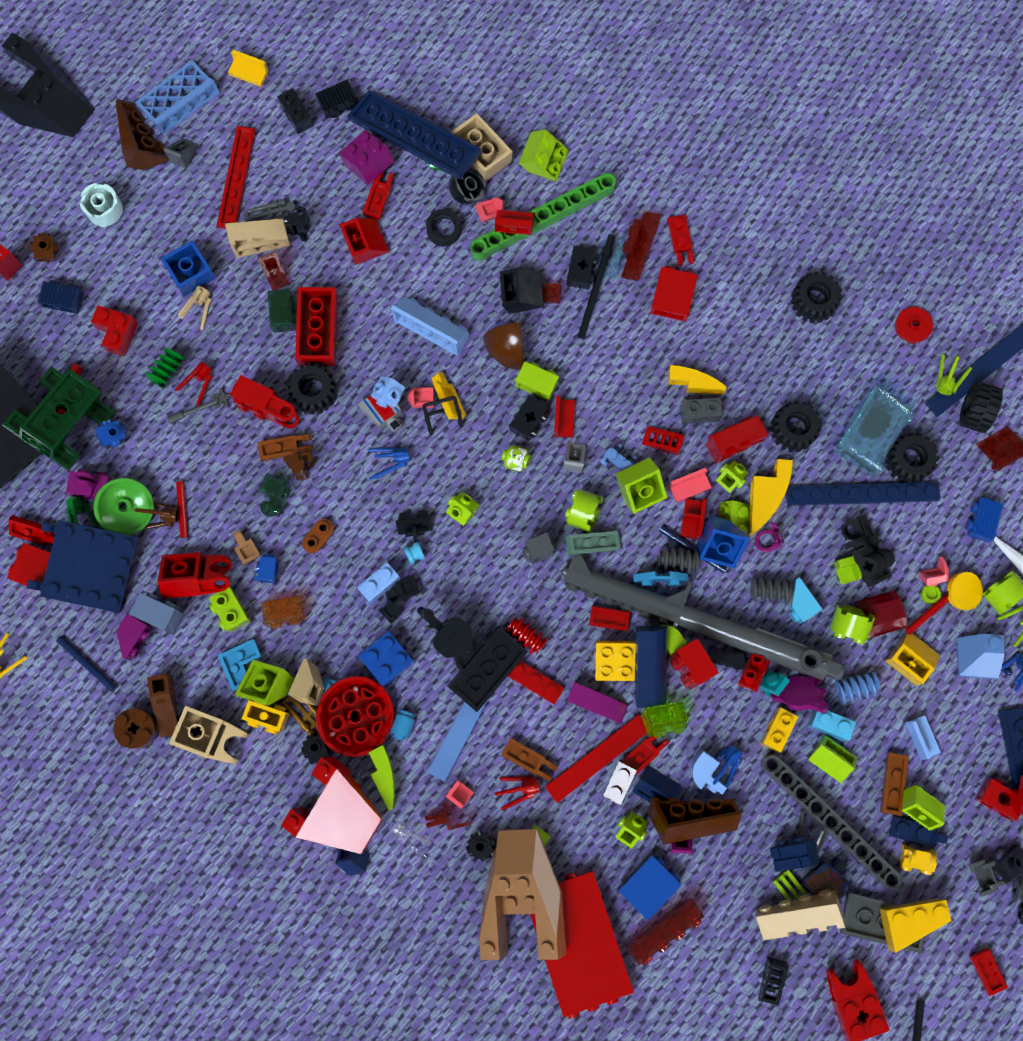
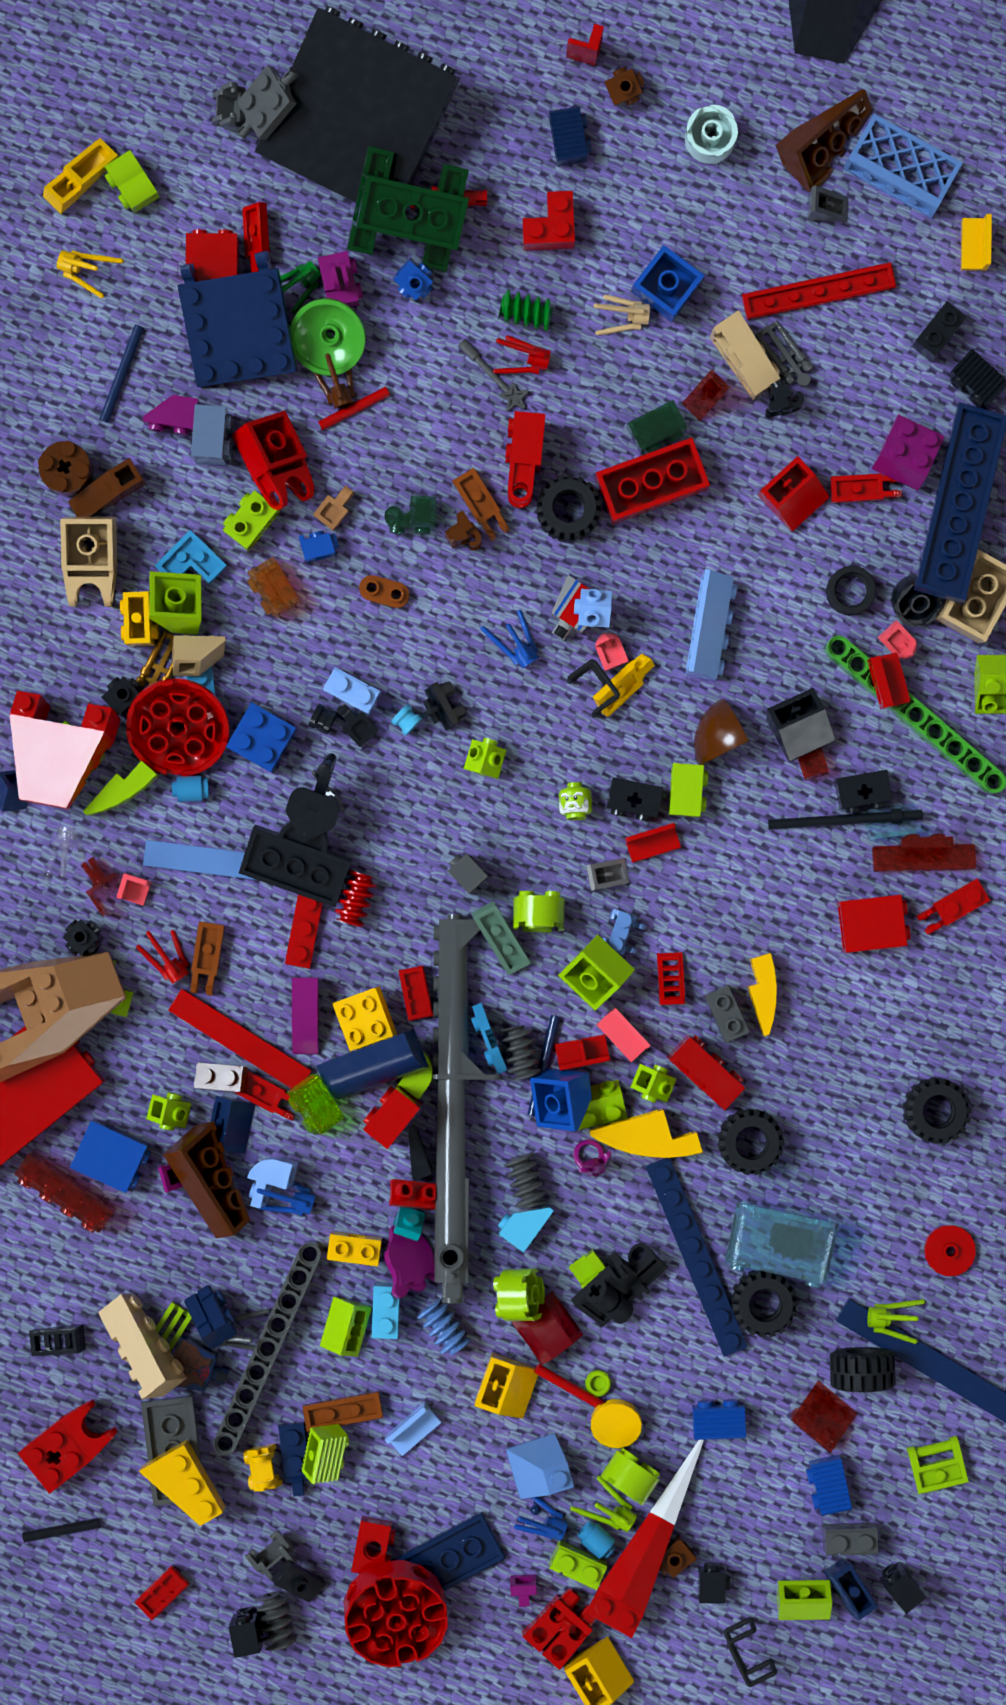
camera: 70 degrees right, 10 degrees up
(936, 575) = (622, 1380): coral plate -> none

